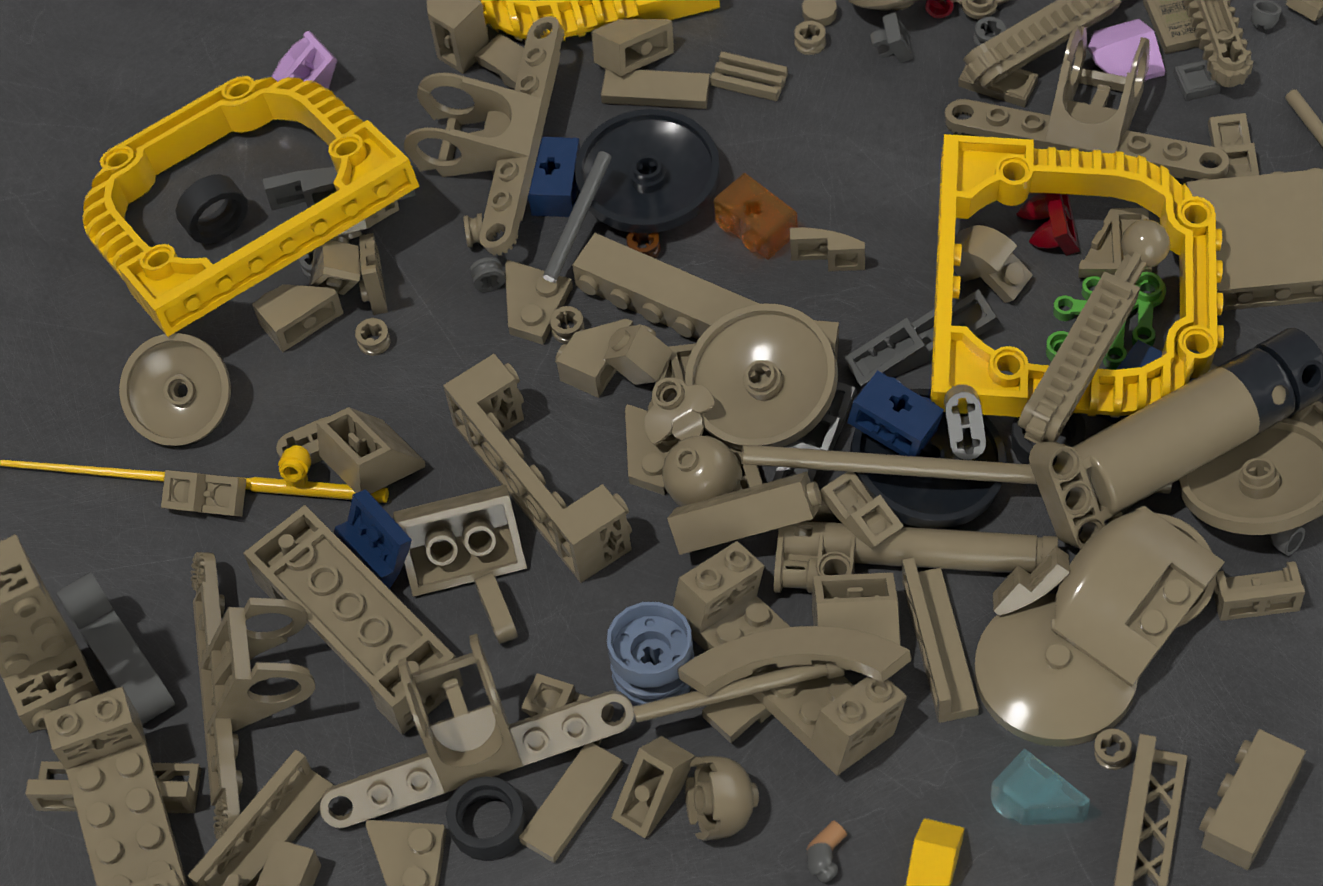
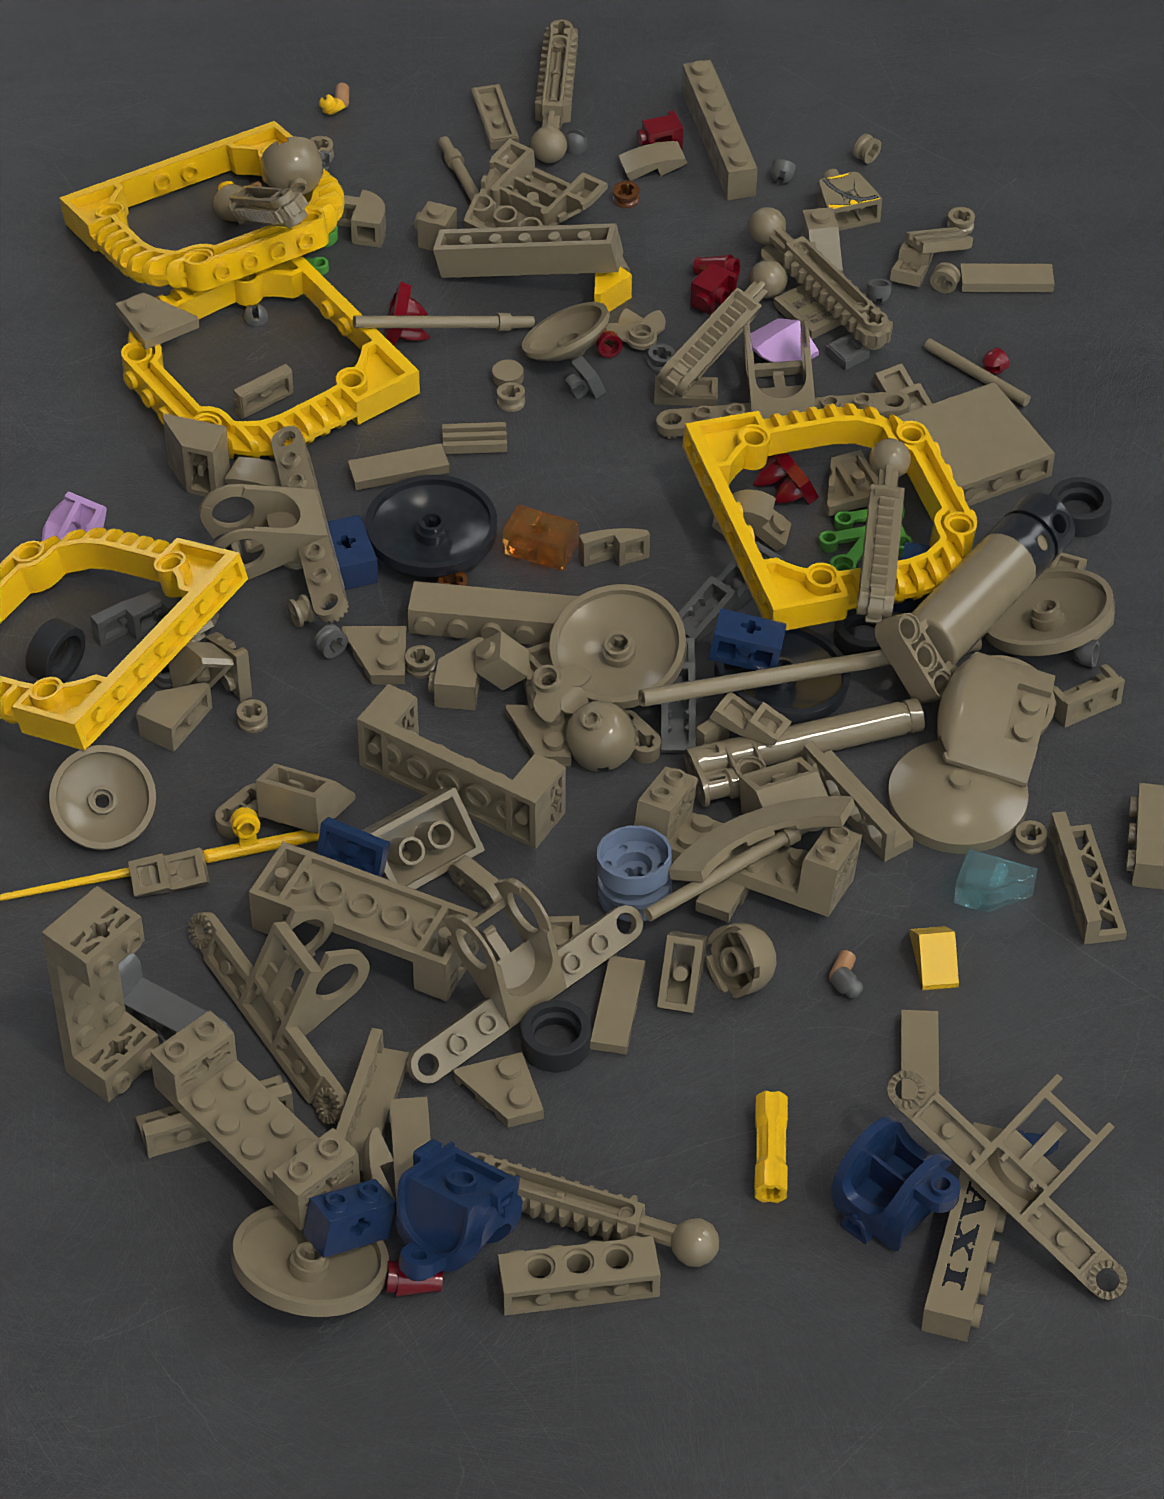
camera: 30 degrees left, 10 degrees down
(577, 217) = (393, 573): dark grey bar -> none
(632, 43) = (362, 435): dark tan slope -> none
(745, 512) = (658, 747): dark tan brick -> none
(973, 421) = (800, 631): beam -> none
(1024, 588) = (904, 745): dark tan slope -> none

